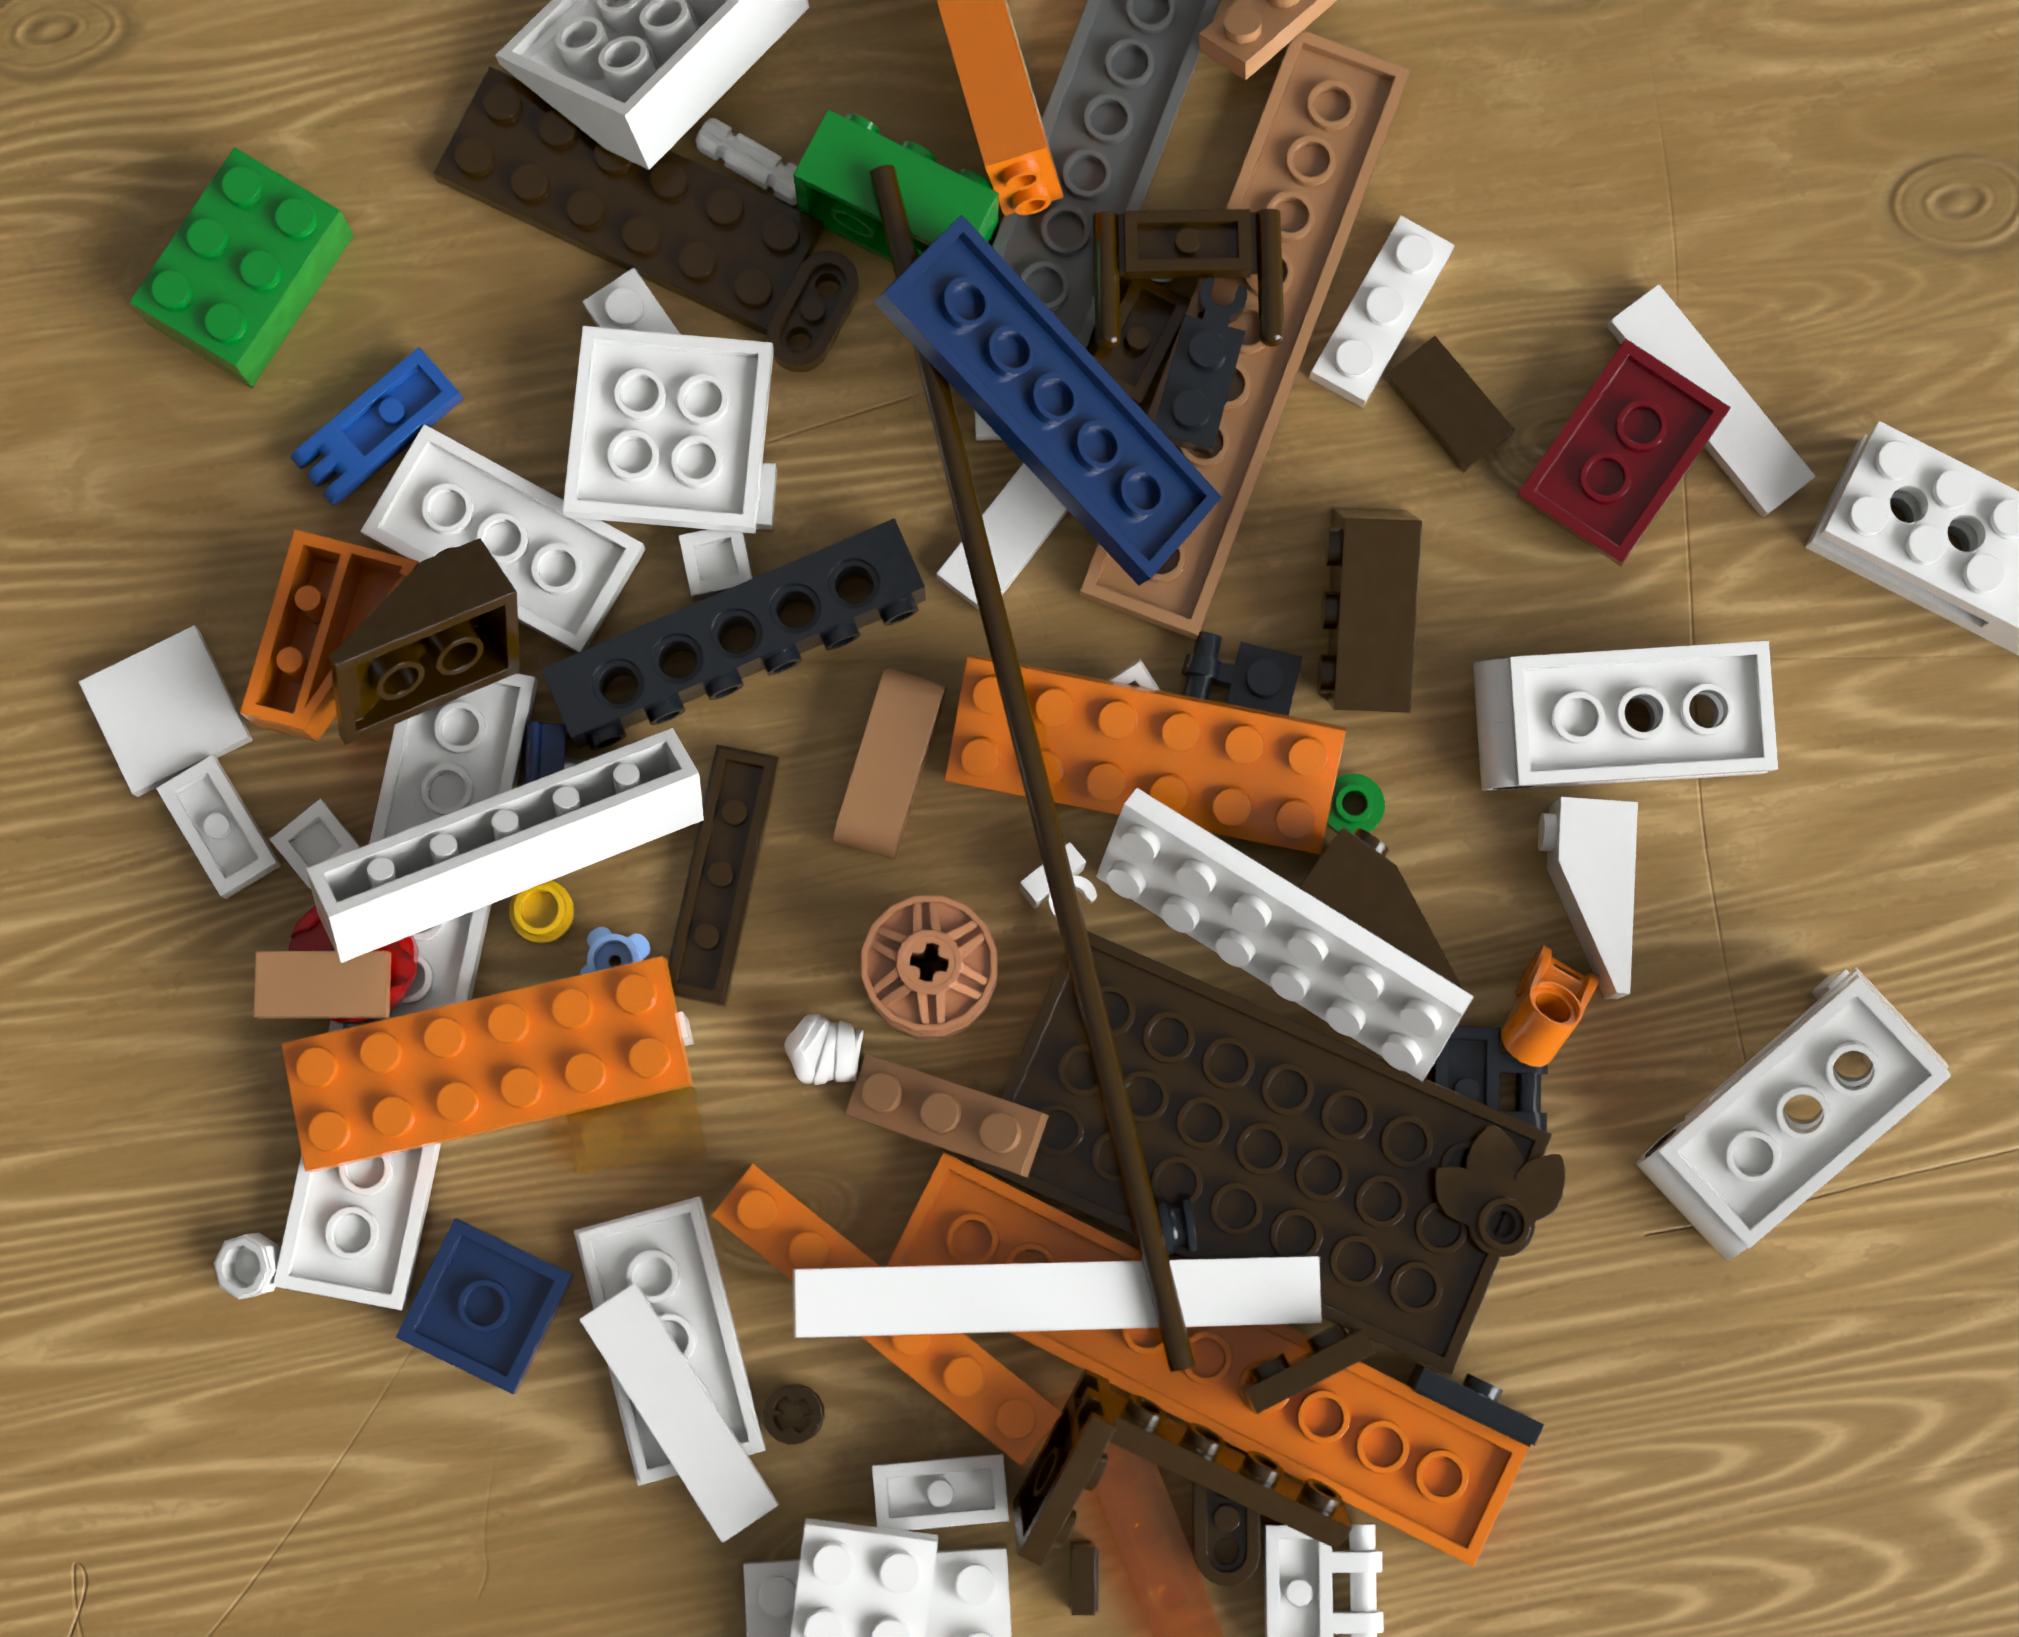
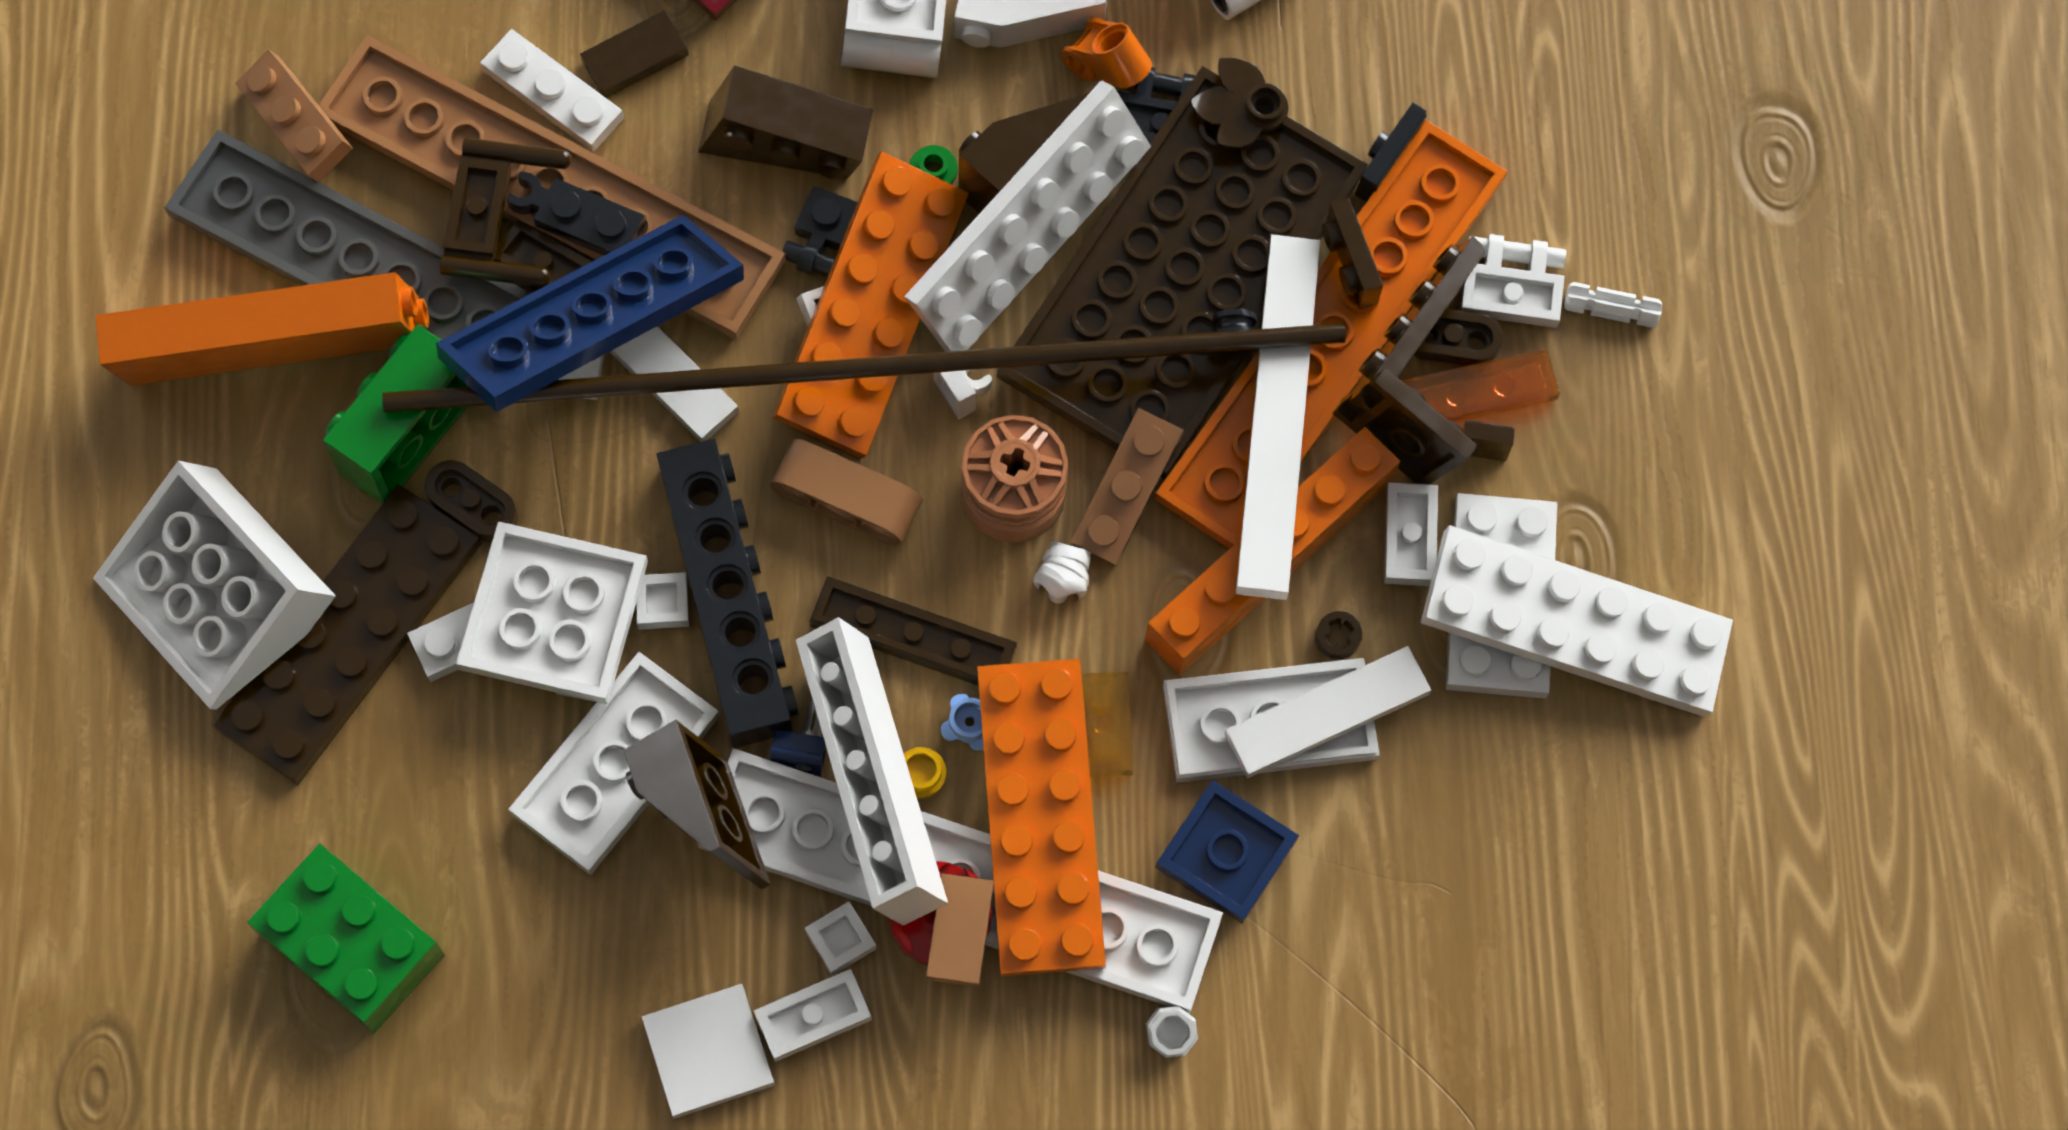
camera: 80 degrees left, 10 degrees down
(317, 605) = (667, 904): orange wedge -> none
(377, 426) = (499, 847): blue hinge -> none
(747, 159) = (337, 530): white axle -> none

